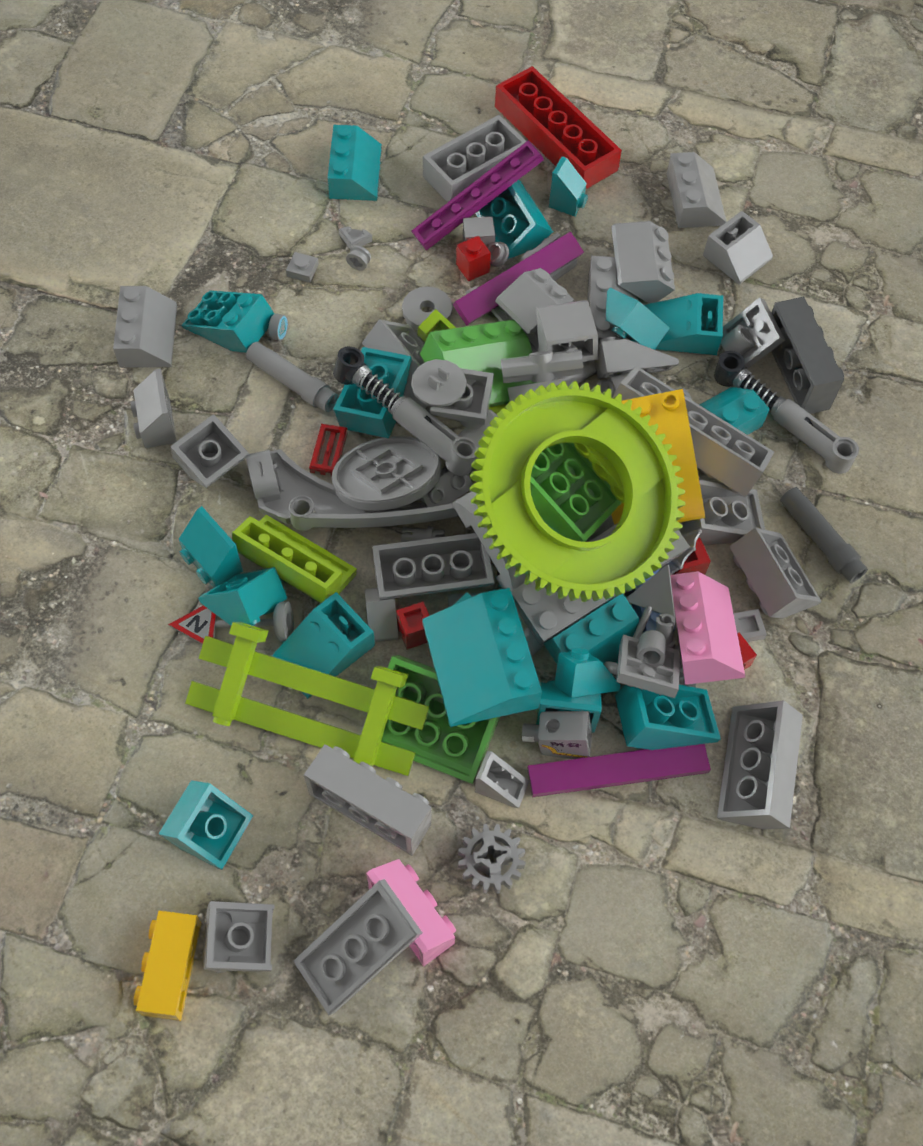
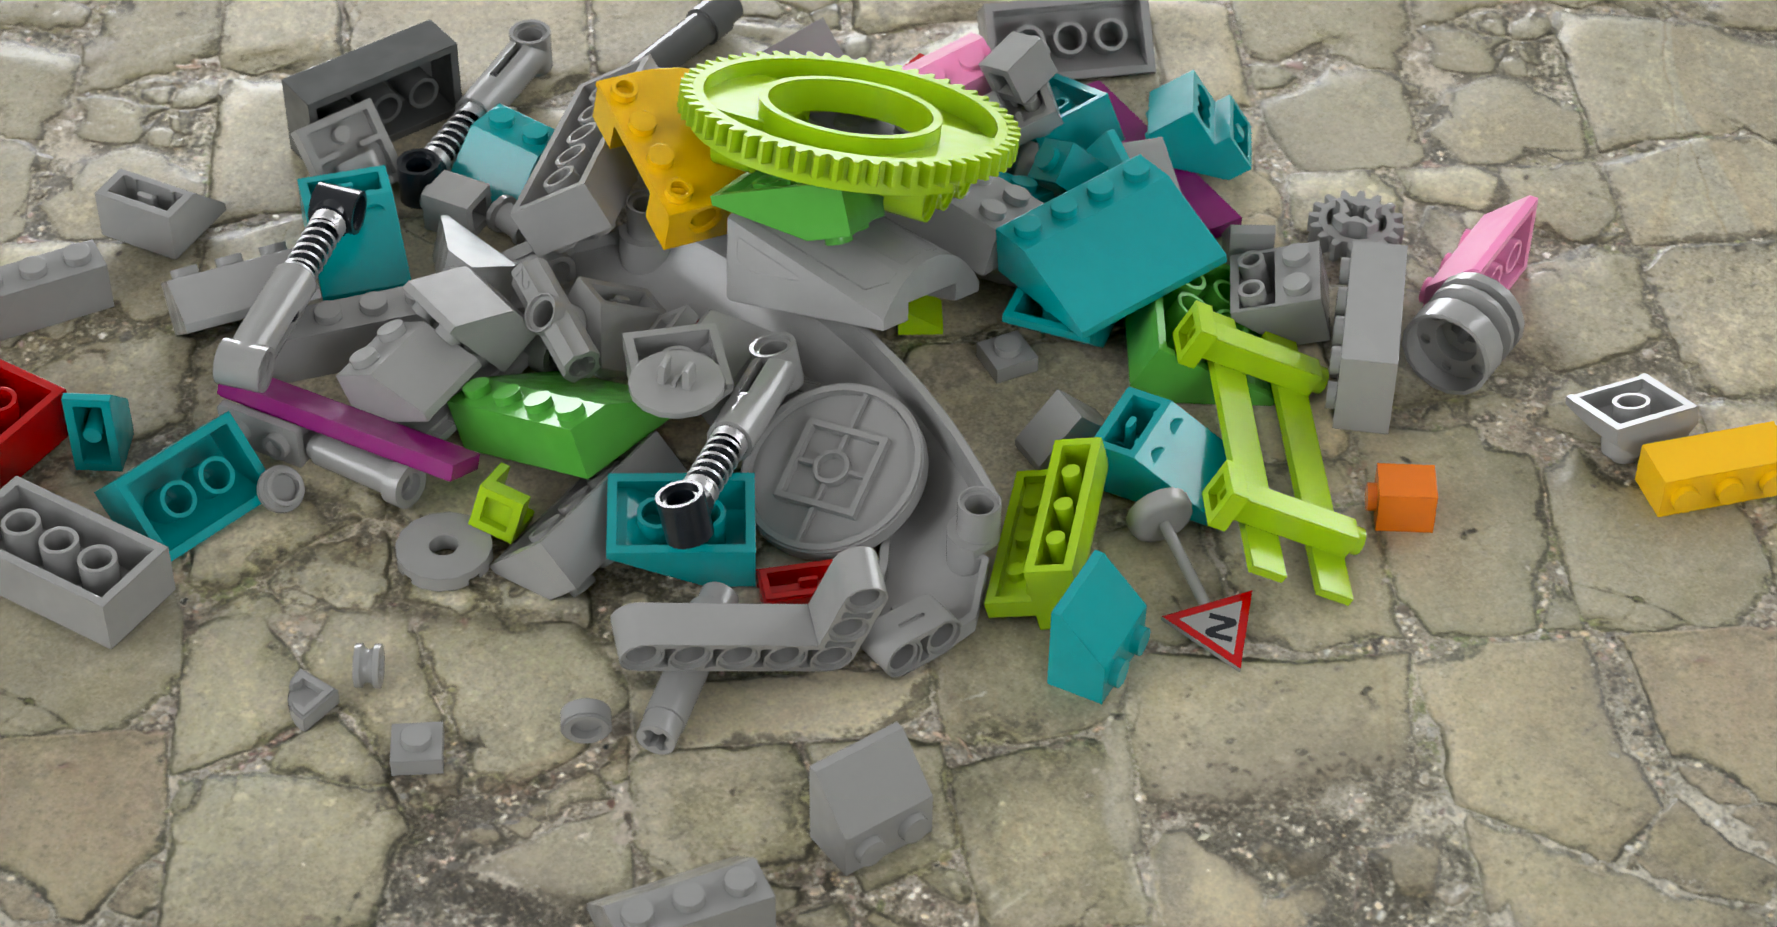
camera: 110 degrees left, 20 degrees down
(206, 824) = (1514, 502): teal slope -> none
(208, 451) = (921, 691): light grey slope -> none
(230, 319) = (598, 796): teal slope -> none
(238, 761) = (1403, 497): none -> orange brick
(245, 596) = (1159, 554): teal slope -> none
(277, 422) = (758, 636): none -> light grey beam
(343, 857) = (1463, 333): none -> light grey wheel
(353, 164) = (126, 756): teal slope -> none
(357, 946) = (1566, 282): light grey tile -> none
(411, 626) = (1078, 372): red panel -> none
(431, 566) = (979, 377): light grey slope -> none
(441, 774) = (1282, 292): none -> light grey slope
(473, 258) = (311, 508): red brick -> none
(477, 195) = (175, 515): magenta tile -> none
(479, 227) = (249, 520): light grey panel -> none
(564, 231) = (250, 356): none -> light grey piece
(621, 816) = (1199, 131): none -> teal piece
(633, 320) = (397, 257): teal slope -> none
(671, 666) = (1018, 67): none -> light grey brick
(697, 377) = (458, 197): none -> light grey brick

